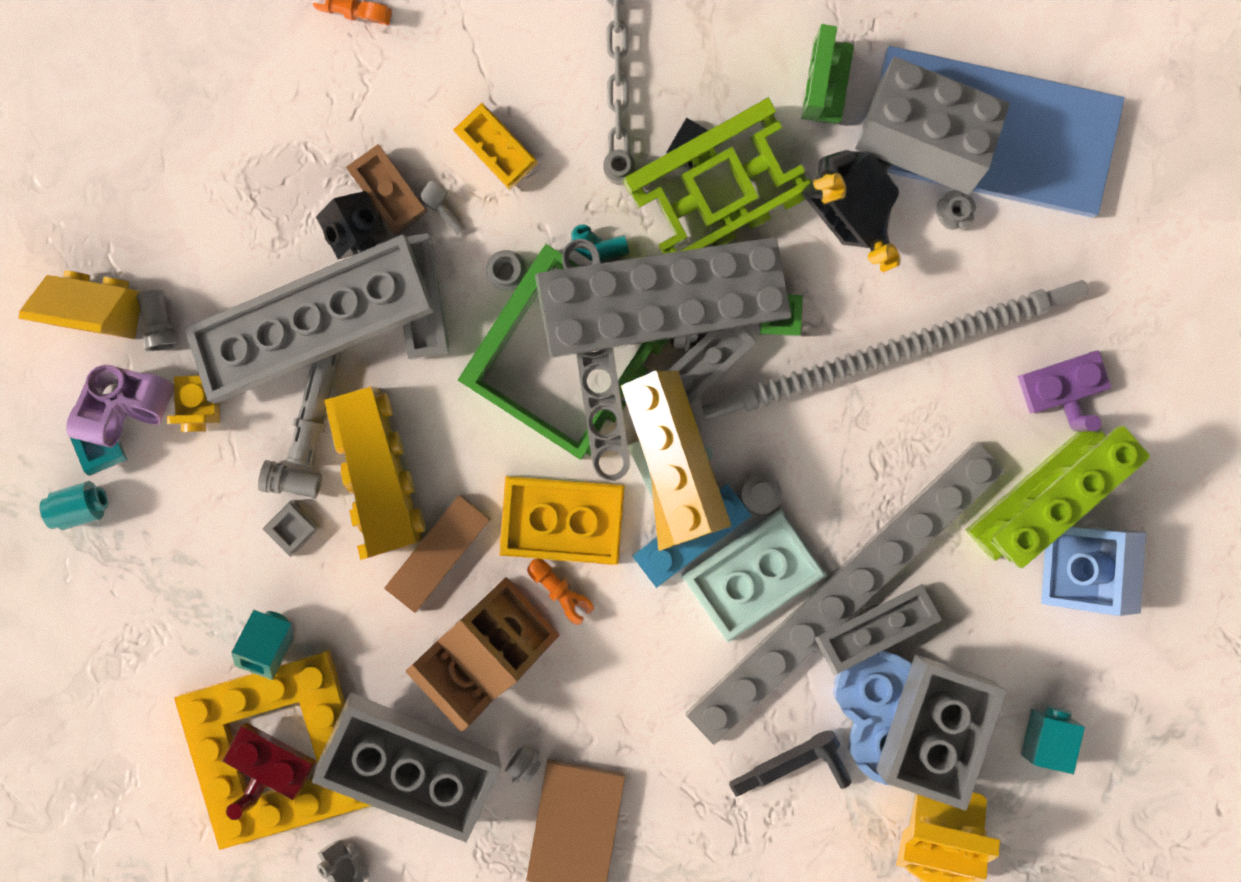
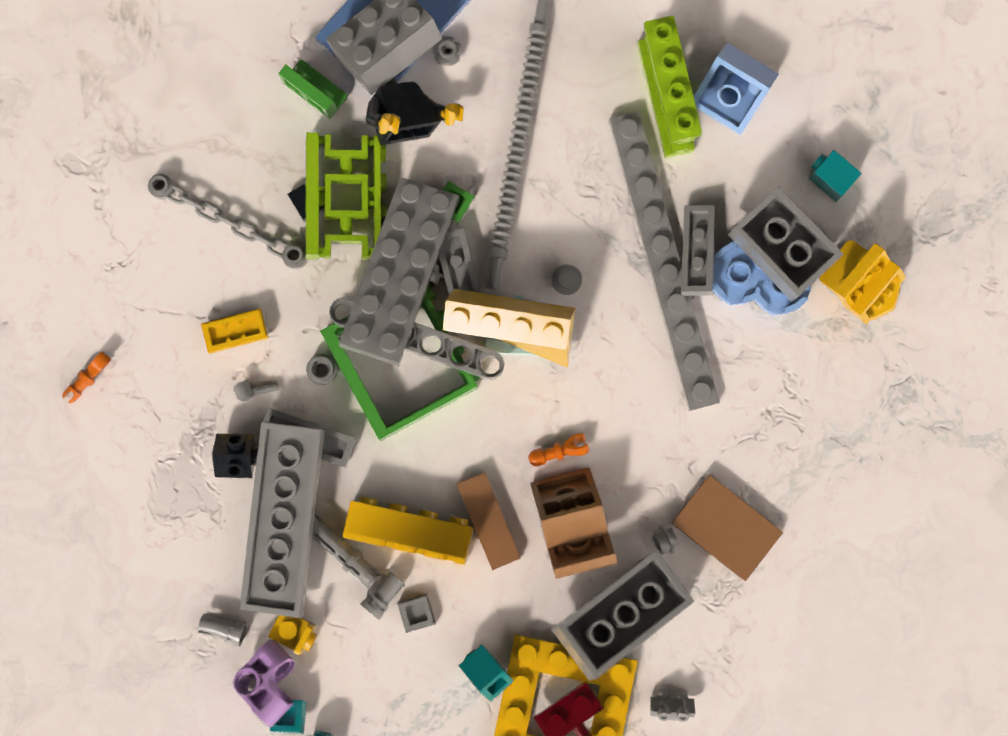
camera: 60 degrees left, 5 degrees down
(84, 305) = (187, 668): yellow slope -> none
(386, 189) = (222, 419): medium nougat plate -> none
(561, 520) = (511, 423): yellow tile -> none
(607, 249) = (346, 290): teal arm -> none
(664, 564) = (578, 371): dark azure plate -> none
(754, 575) = (619, 314): light aqua tile -> none
(822, 745) = (758, 330): black piece -> none
(1065, 385) = (602, 42): medium lavender plate -> none

